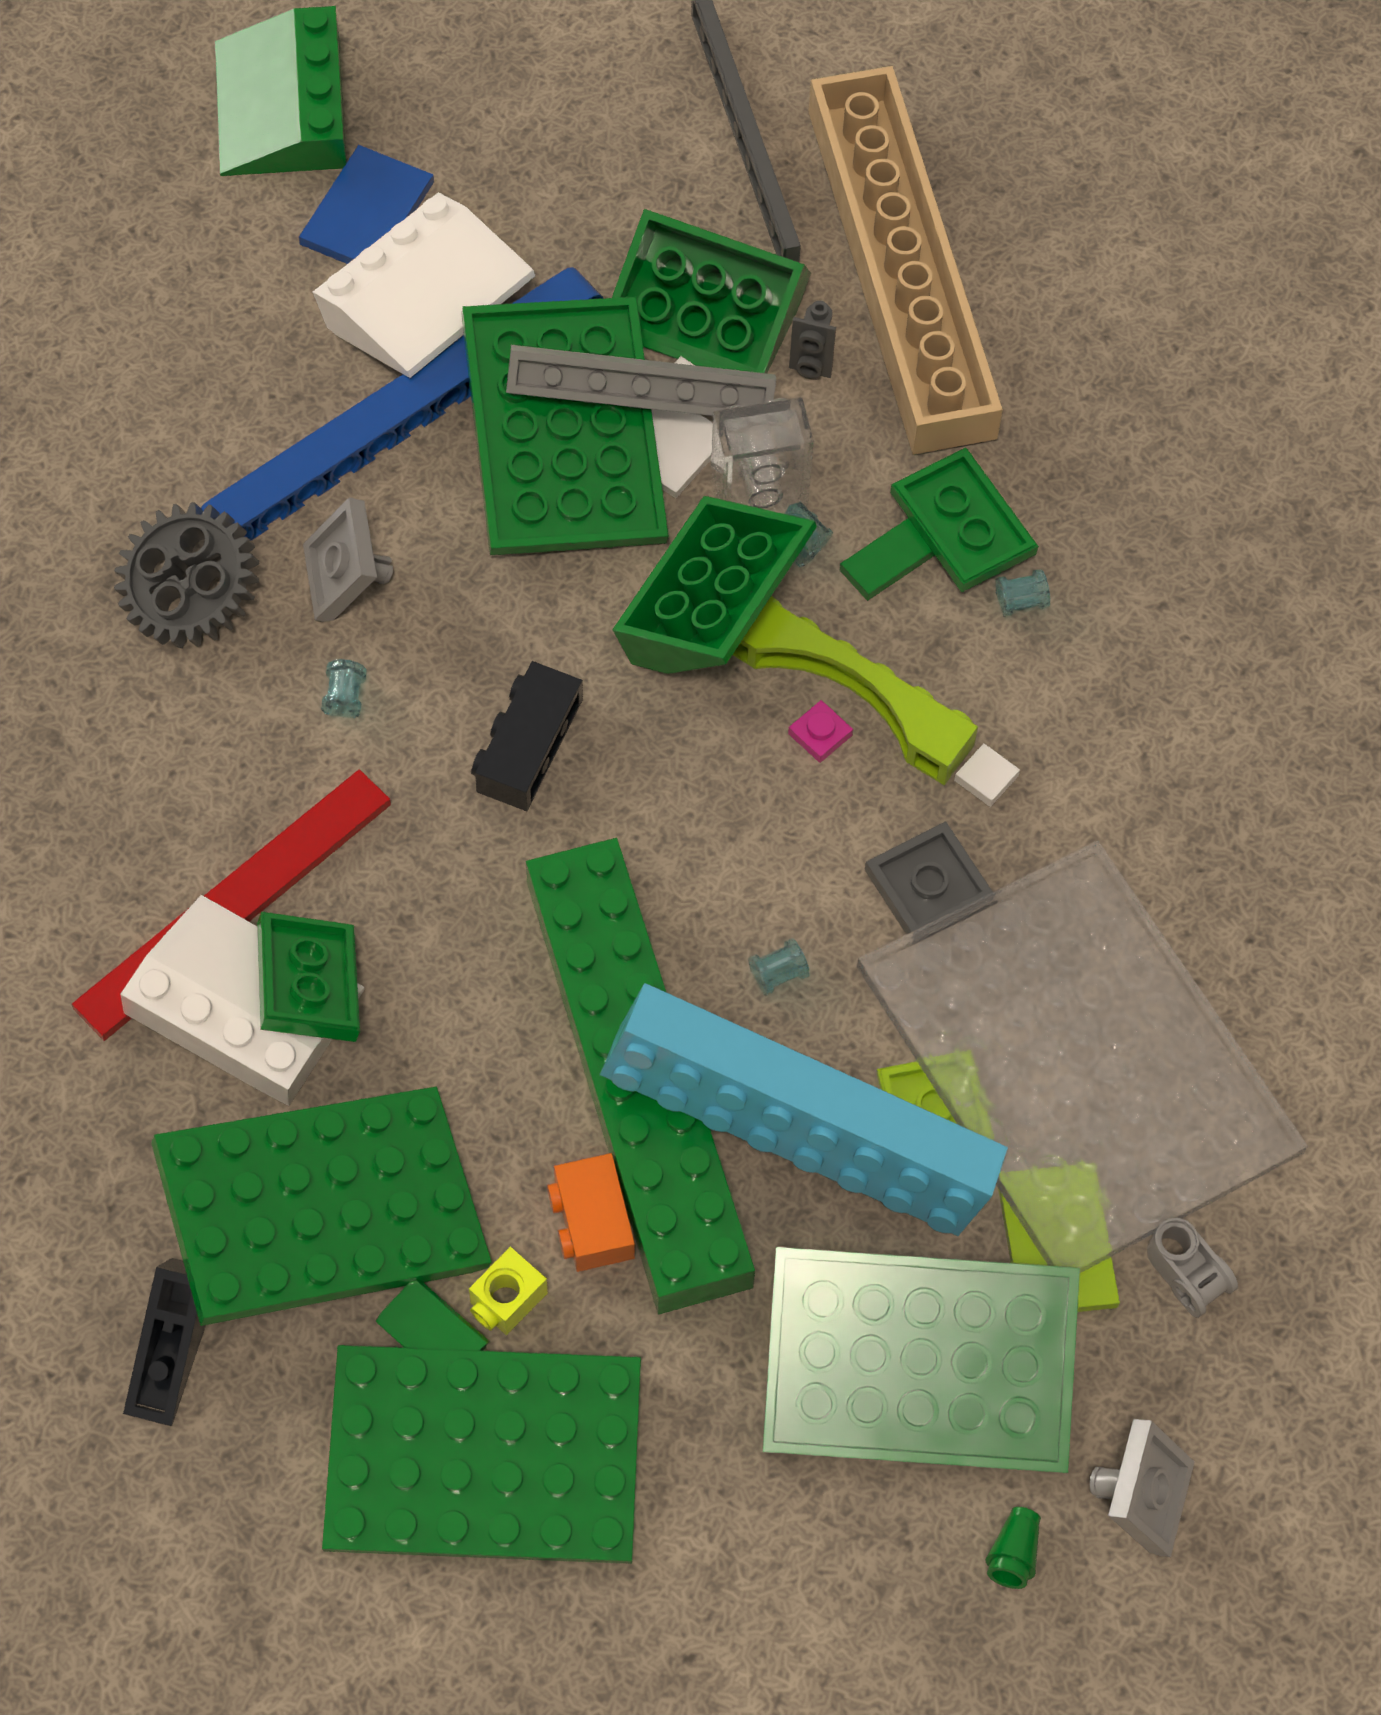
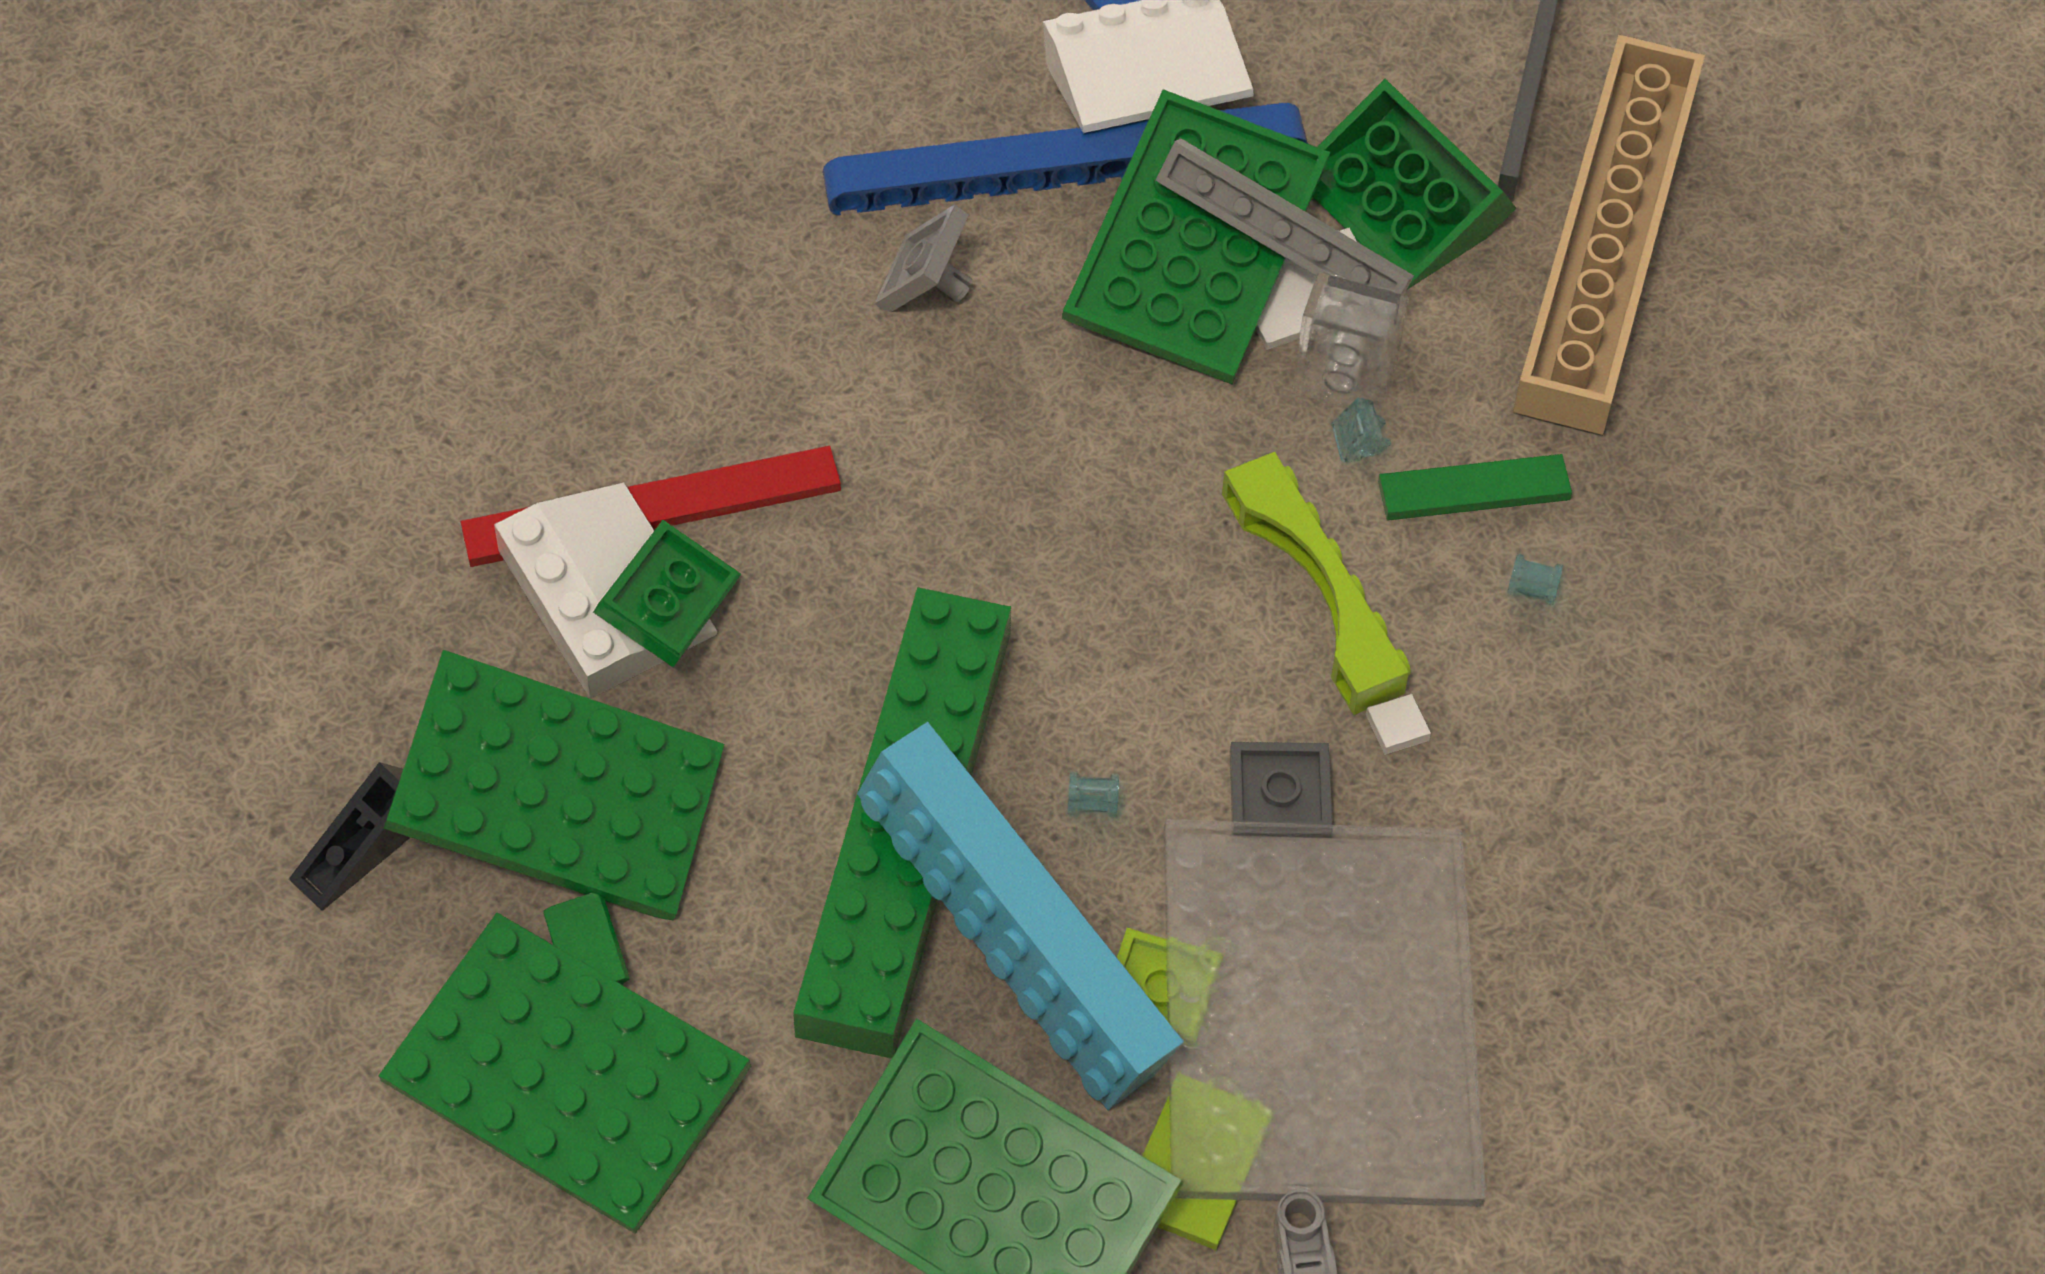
camera: 30 degrees right, 5 degrees down
(186, 575) = (783, 211): dark grey gear -> none
(343, 688) = (860, 371): clear light blue bush -> none
(511, 1272) = (674, 927): neon yellow brick -> none
(527, 735) = (995, 487): black brick -> none
(592, 1212) = (786, 918): orange brick -> none
(710, 586) = (1233, 428): green slope -> none
(813, 342) = (1472, 265): dark grey hinge -> none
(820, 731) = (1267, 611): dark pink plate -> none
(964, 519) = (1520, 489): green tile -> none

